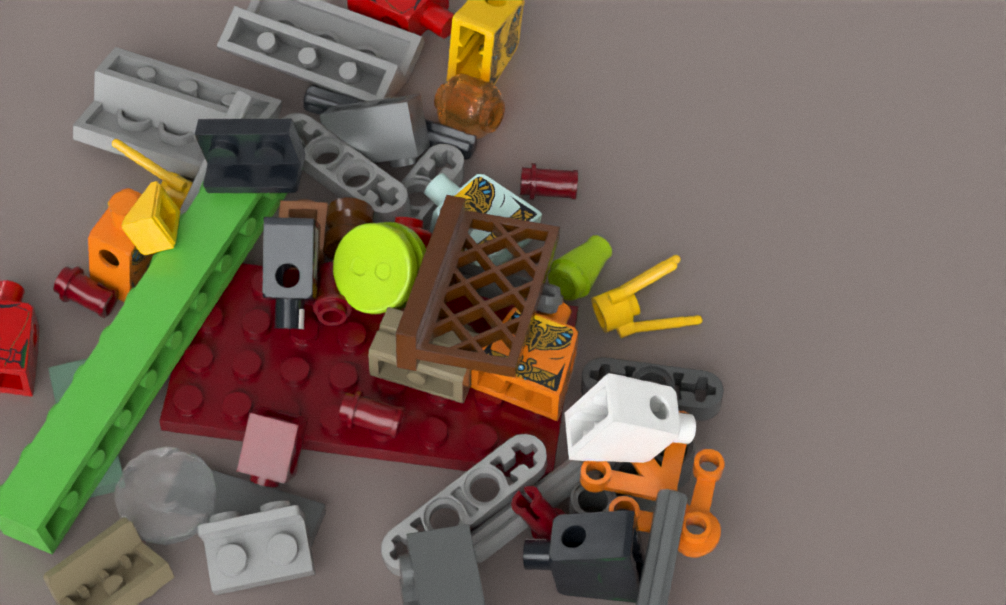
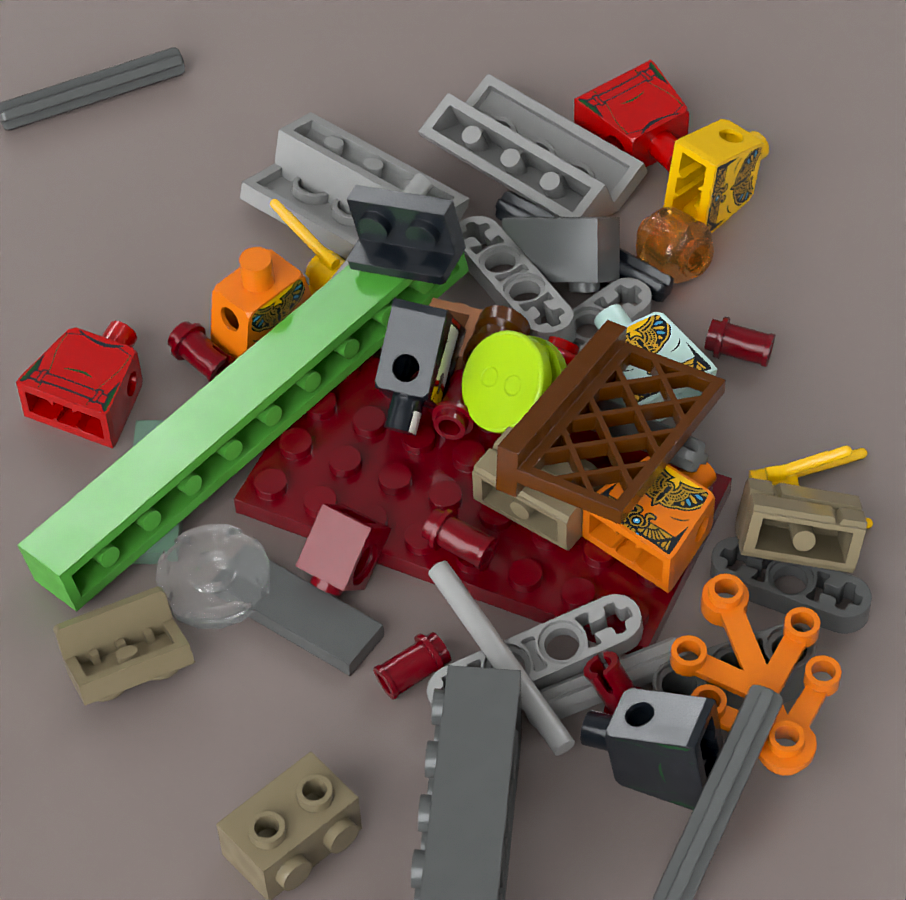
camera: 20 degrees right, 5 degrees down
(152, 221) = (282, 285): yellow slope -> none
(257, 547) = (293, 651): light grey bracket -> none
(361, 533) = (412, 664): none -> dark red pin
(435, 508) = (500, 656): none -> light grey bar
(580, 267) = (743, 439): lime cone -> none
(626, 421) = (735, 600): white torso -> none
(650, 337) = (800, 525): none -> dark tan brick

